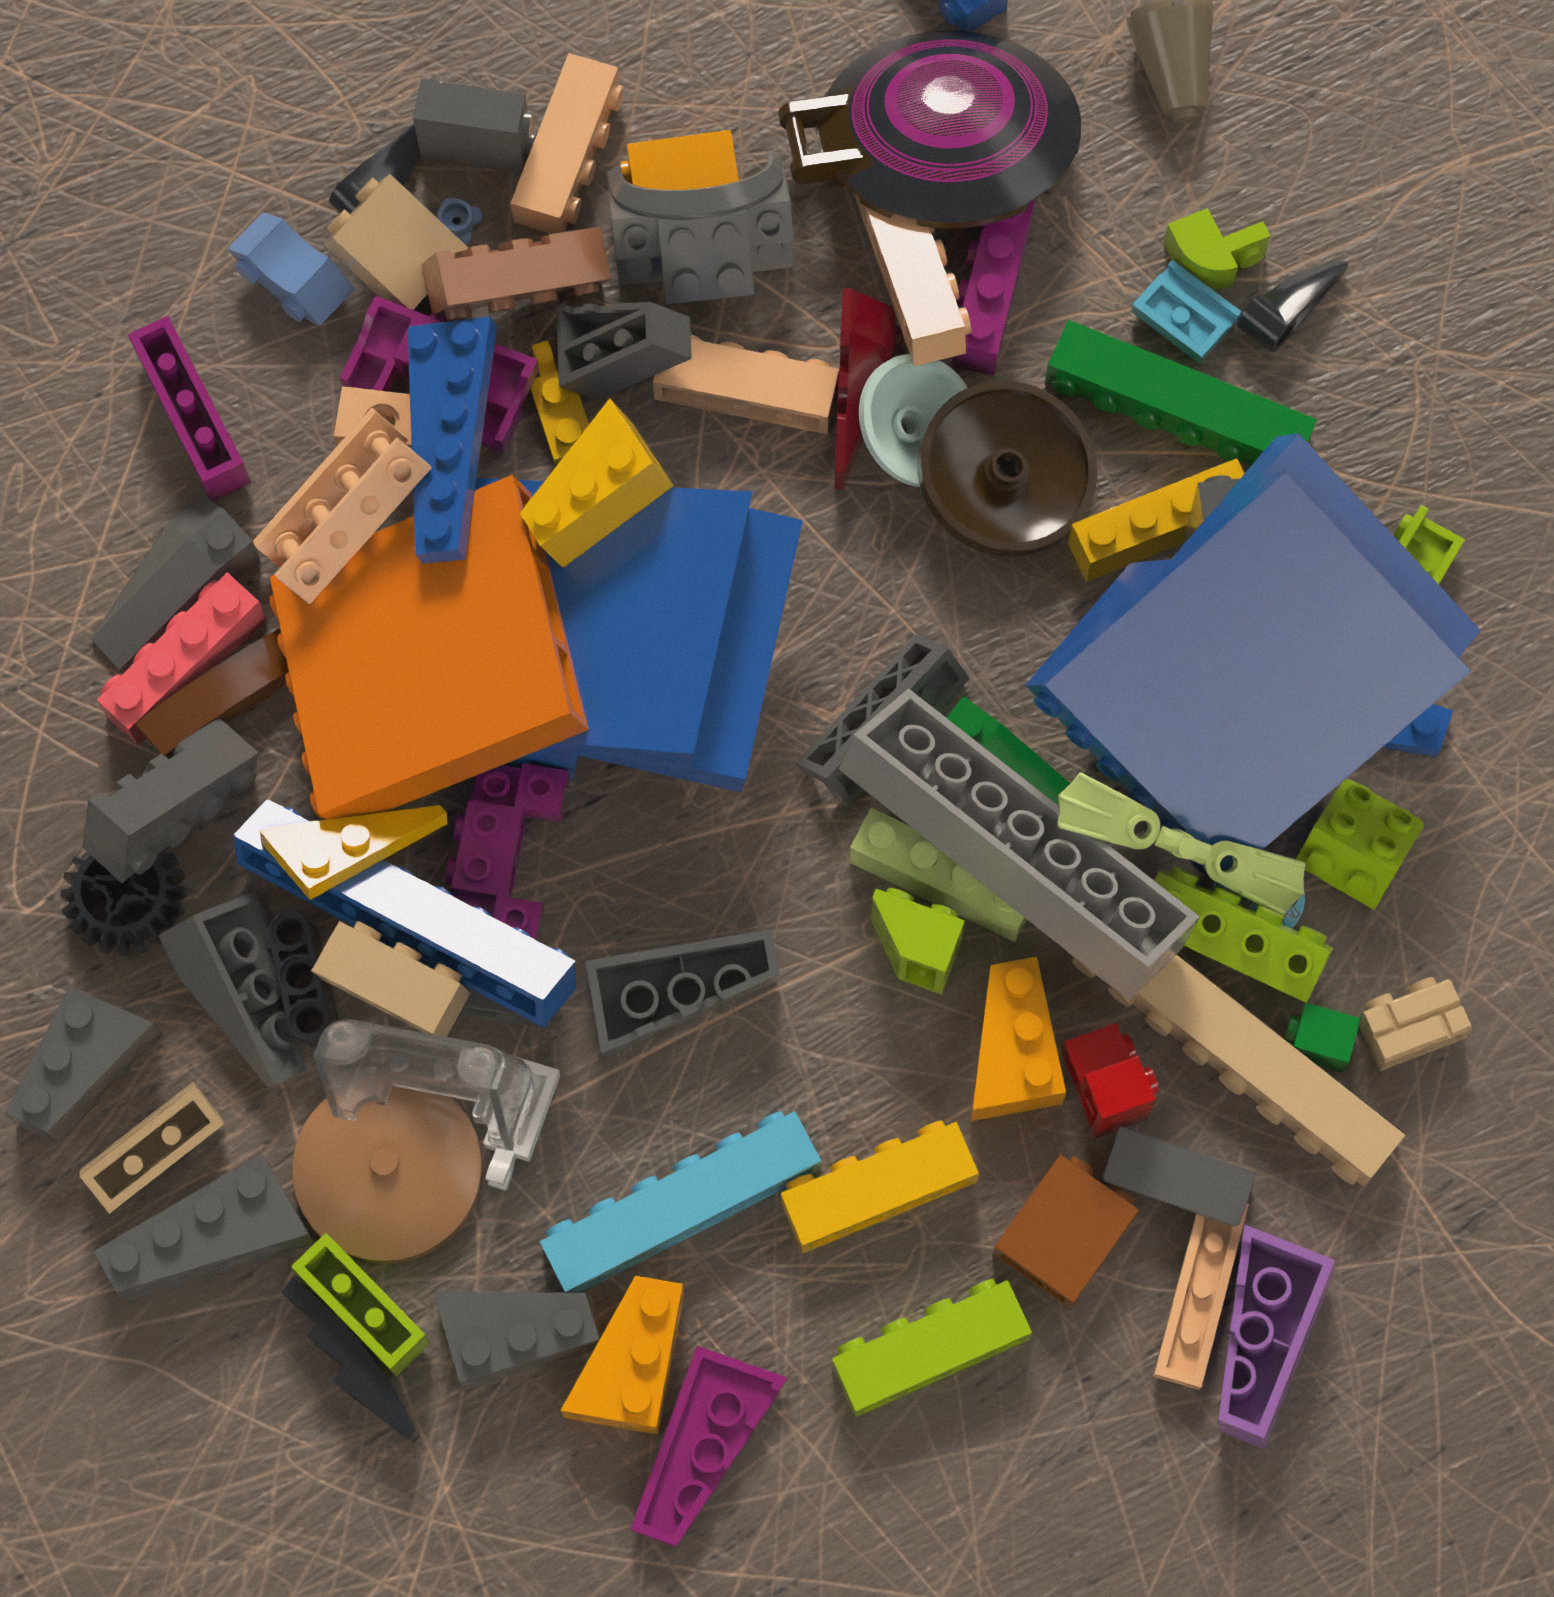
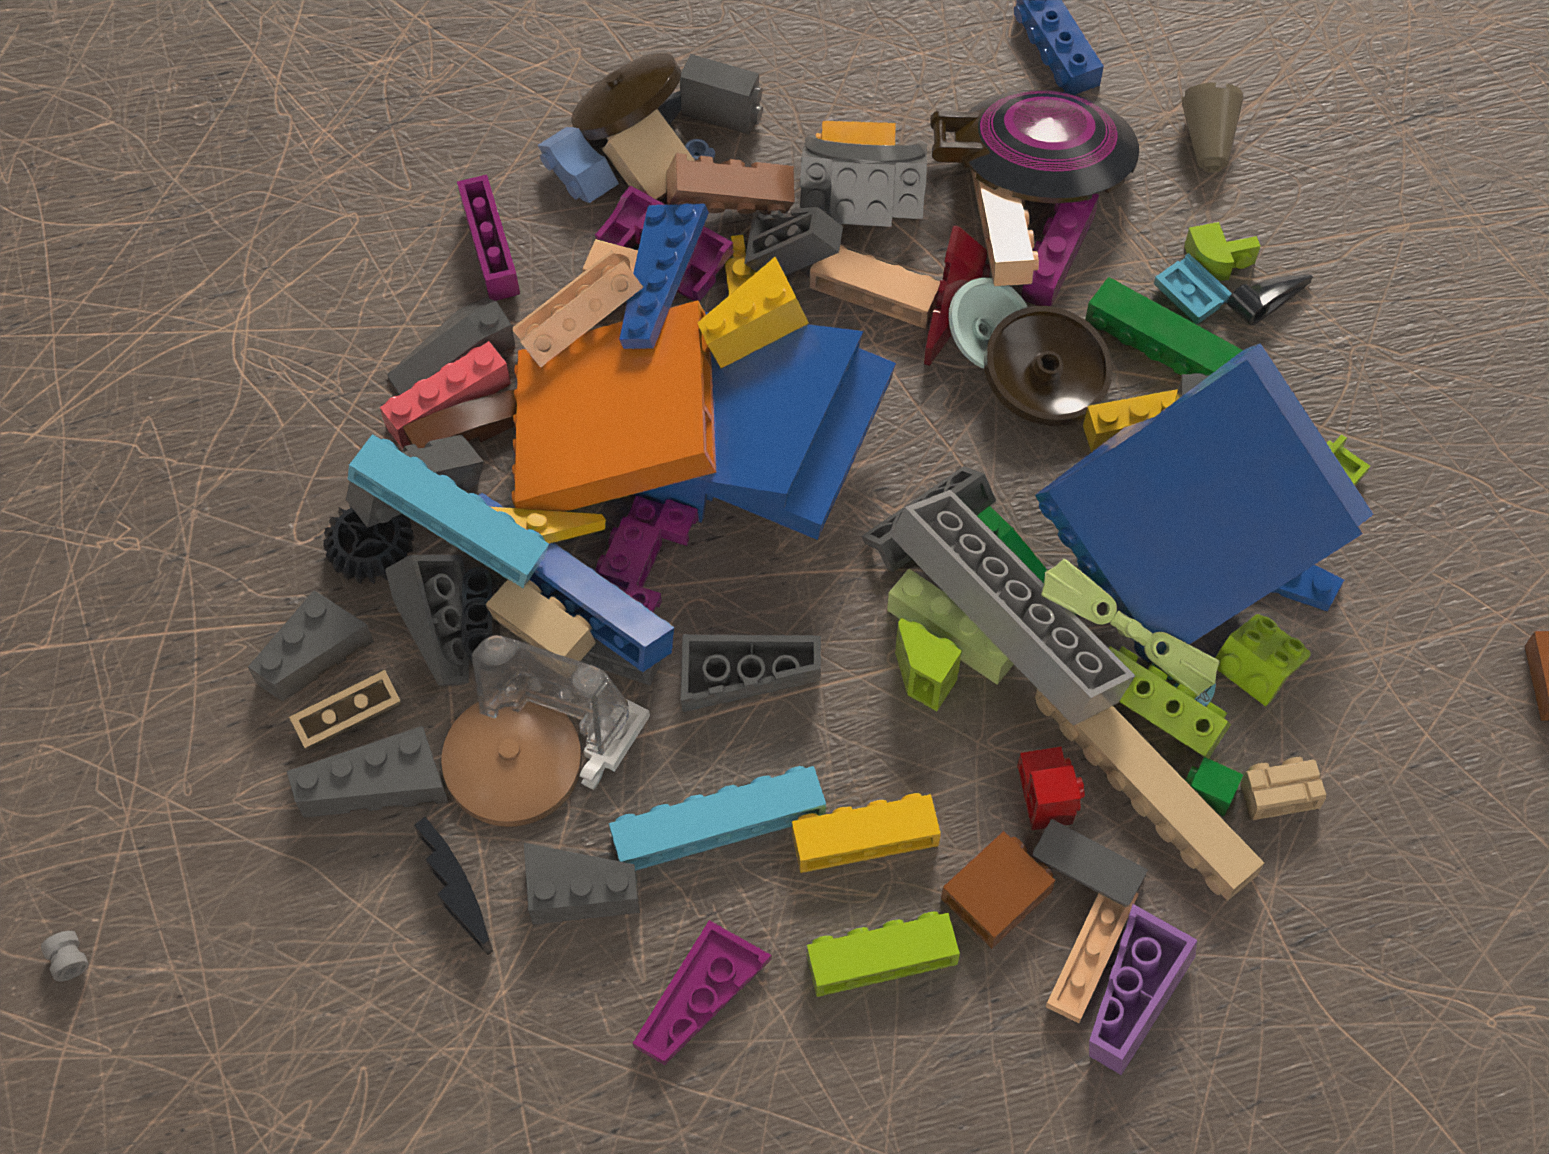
camera: 10 degrees right, 10 degrees down
(235, 855) = (448, 510): none -> medium azure brick
(340, 156) = (626, 96): none -> dark brown dish
(361, 1304) = (470, 845): lime brick -> none
(566, 145) = (783, 116): light nougat brick -> none
(632, 1362) = (658, 922): light orange wedge -> none
(1017, 1045) = (985, 753): light orange wedge -> none

